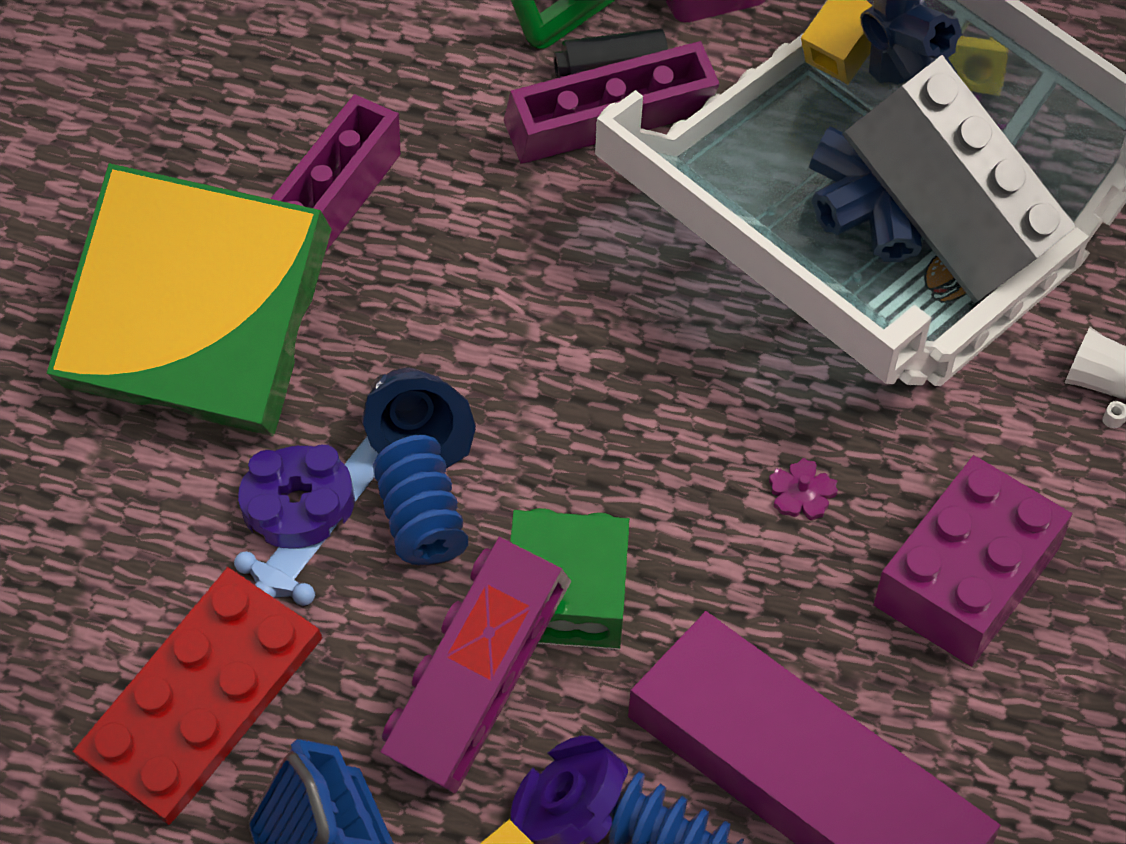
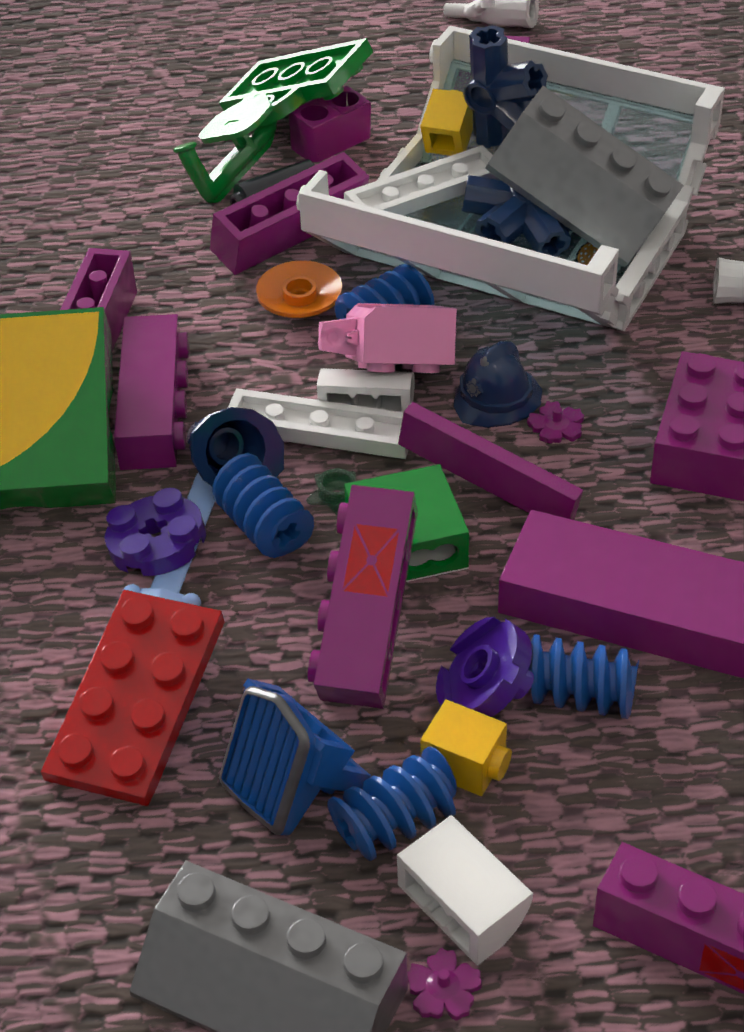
camera: 15 degrees left, 10 degrees down
(359, 305) = (150, 392): none -> magenta brick
(512, 487) = (327, 483): none -> clear green plate
(535, 409) = (327, 422): none -> white plate
(584, 198) = (299, 289): none -> orange dish
(598, 384) = (368, 389): none -> white brick
(649, 326) = (393, 334): none -> bright pink hinge
(665, 264) = (398, 286): none -> blue piece
(688, 534) = (486, 464): none -> magenta tile
(751, 427) = (496, 388): none -> dark blue piece
(769, 119) = (424, 184): none -> white plate

